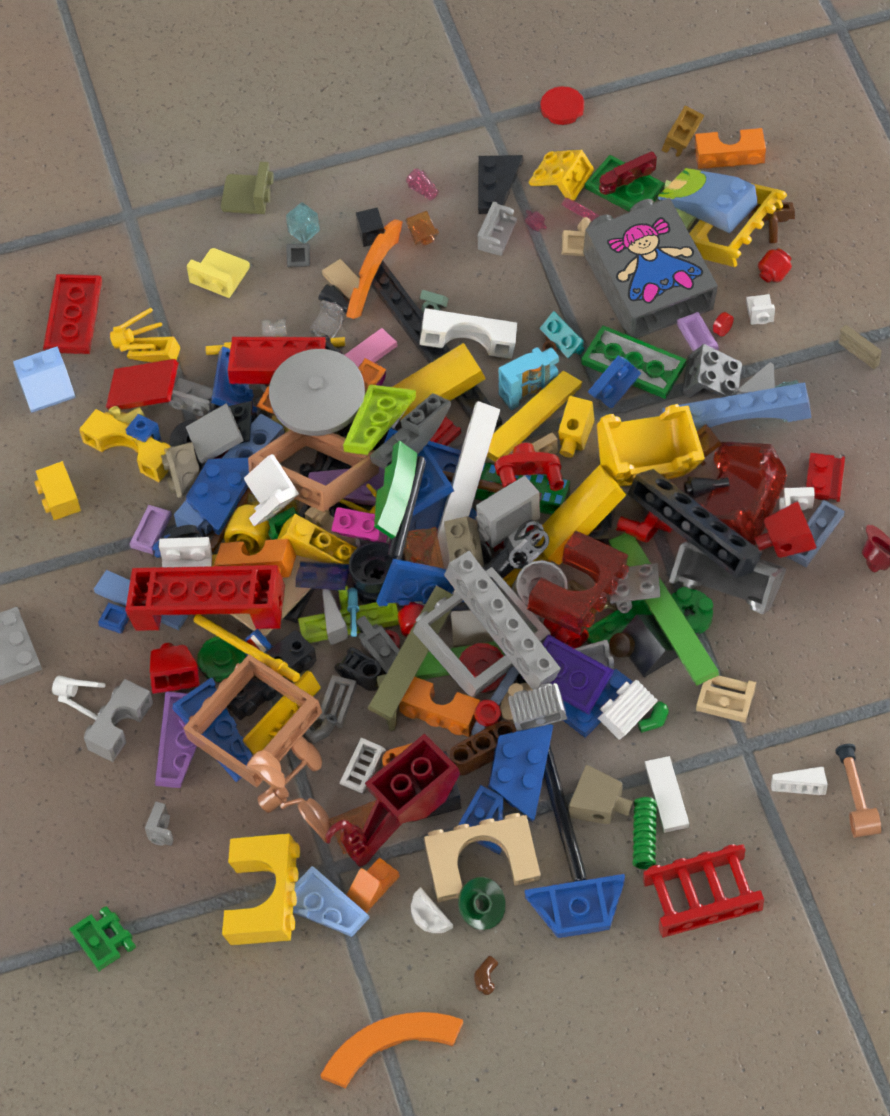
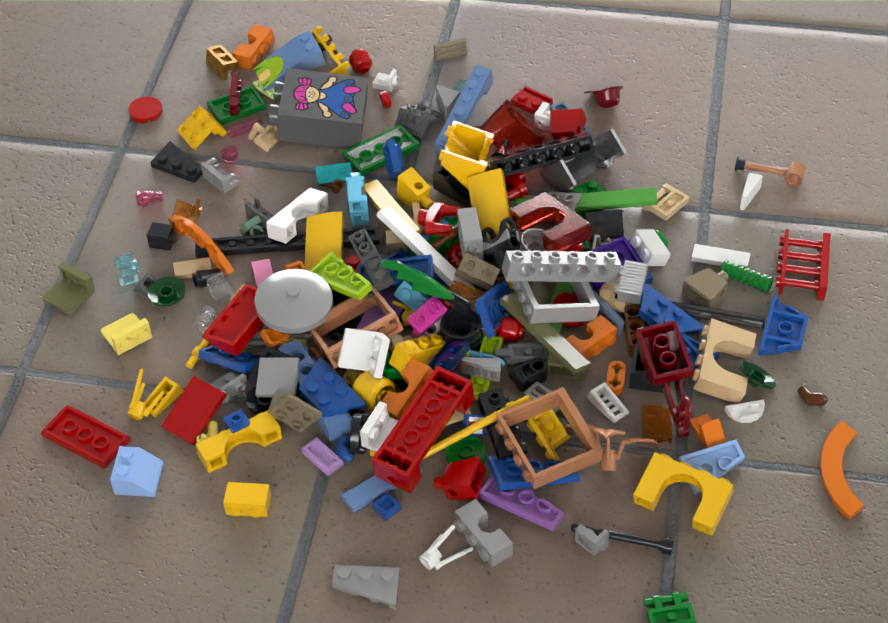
camera: 65 degrees left, 10 degrees down
(188, 901) = (664, 545): none -> black piece
(293, 268) = (166, 291): none -> dark green dish
(458, 297) = (252, 211): none -> dark grey hinge
(487, 712) = (615, 312): red tile -> none
(696, 331) = (380, 115): lavender tile -> none

